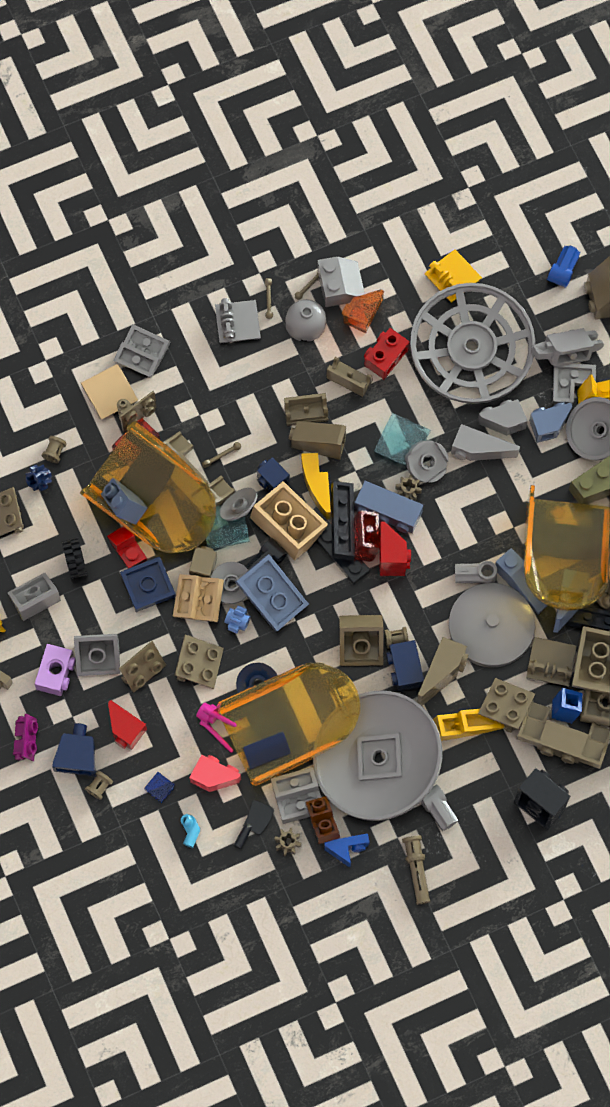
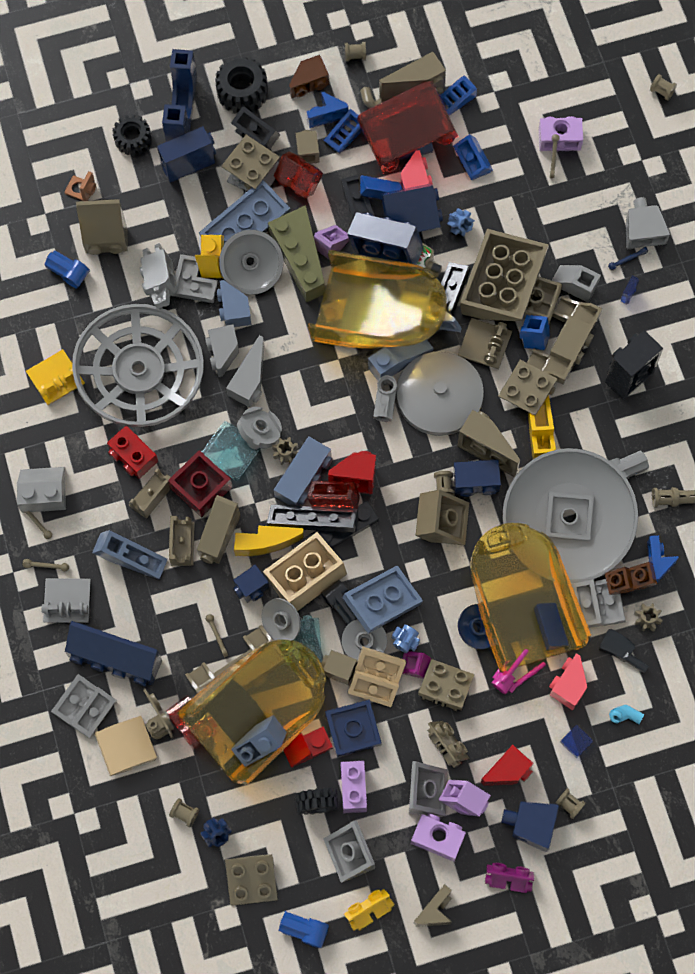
camera: 80 degrees left, 0 degrees up
(89, 685) = (464, 798): none -> lavender brick
(92, 590) = (353, 787): none -> lavender brick
(189, 366) = (112, 654): none -> dark blue slope
(216, 633) = (416, 664): none -> magenta slope
(286, 366) = (129, 554): none -> sand blue slope
(305, 320) = (78, 530): light grey cylinder -> none
(362, 310) = (80, 470): clear orange slope -> none
(363, 415) = (200, 483): none -> dark red brick

